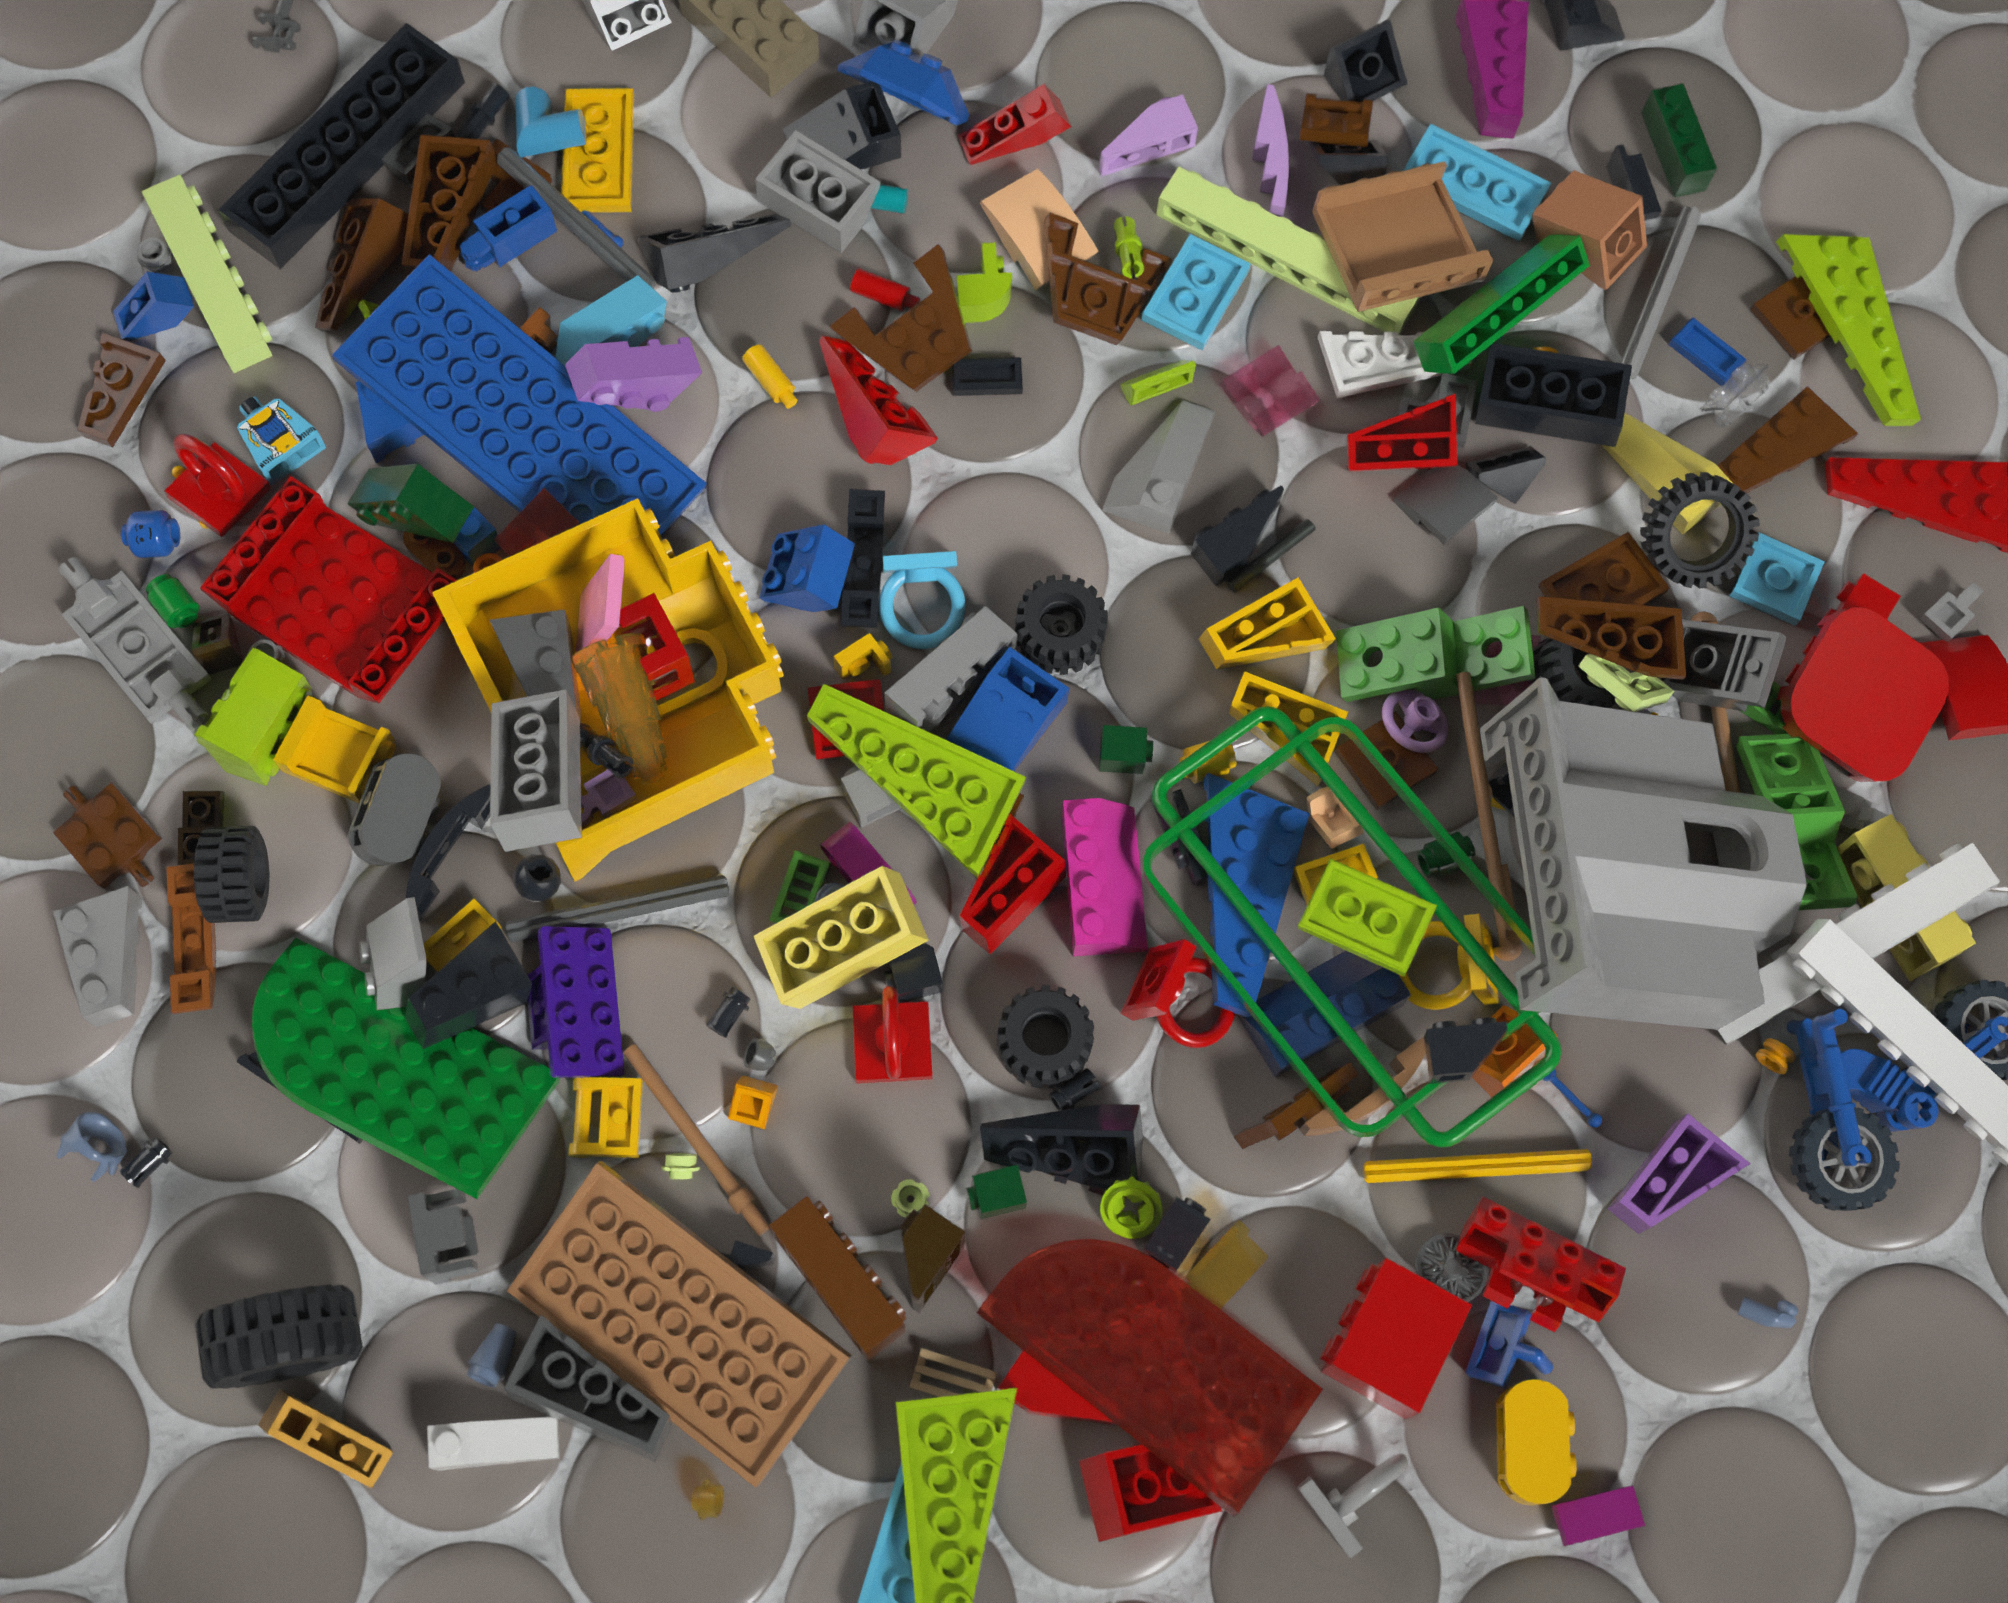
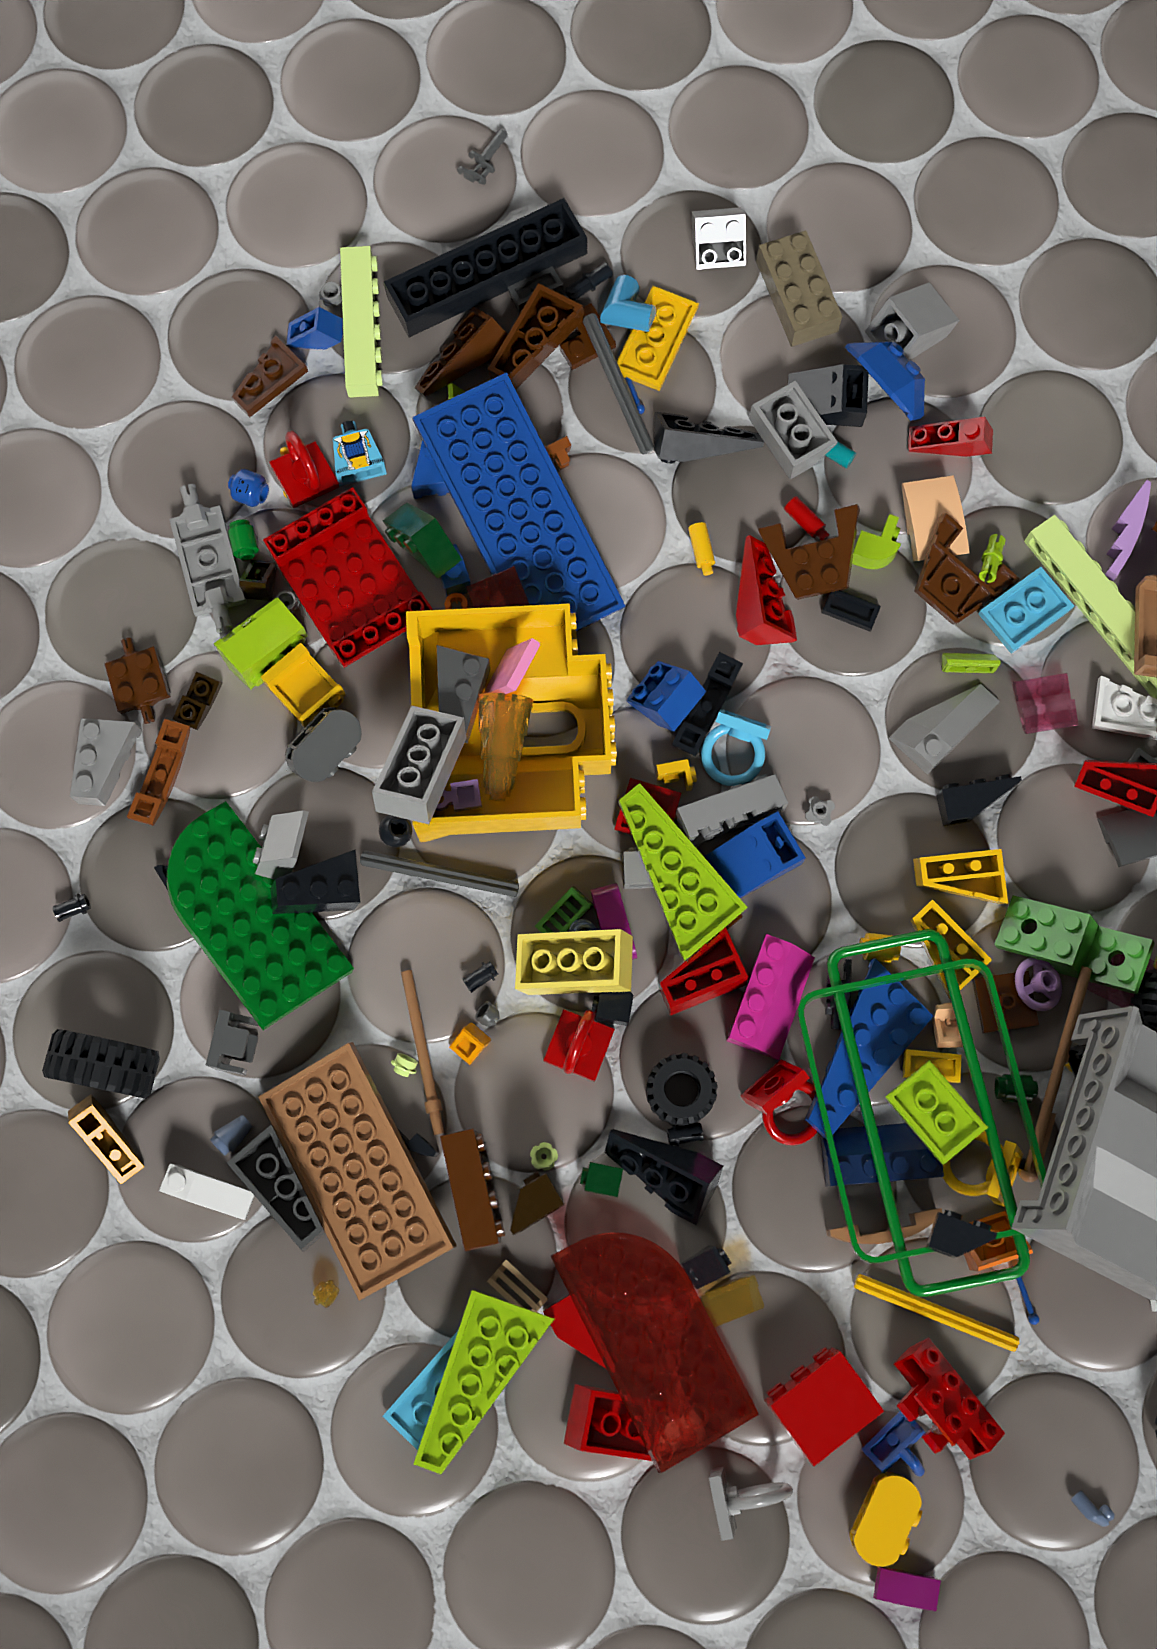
camera: 30 degrees right, 5 degrees up
(98, 1126) = (53, 872): sand blue piece -> none
(231, 874) = (201, 743): black tyre -> none
(431, 551) = (422, 577): reddish brown plate -> none
(457, 934) = (328, 846): yellow plate -> none
(471, 809) = (317, 804): black slope -> none
(508, 230) = (570, 372): blue hinge -> none
(576, 1003) = (384, 926): dark purple bracket -> none
(603, 751) = (472, 767): black pin -> none
(618, 1117) = (378, 1015): yellow plate -> none
(623, 314) = (606, 471): medium azure wedge -> none
(633, 376) = (608, 512): medium lavender wedge -> none
(668, 652) = (539, 728): red panel -> none
(1058, 597) = (821, 787): black tyre -> none
(1124, 749) = (826, 915): dark green brick -> none
(1126, 1223) = (679, 1239): lime gear -> none
(1157, 132) = (1051, 482): lavender slope -> none
(1270, 555) = (991, 821): pearl dark grey bar -> none
(1281, 1120) = (817, 1219): reddish brown wing -> none
(1450, 1269) = (882, 1376): dark grey wheel -> none
(1675, 1173) = (1071, 1385): medium lavender wedge -> none

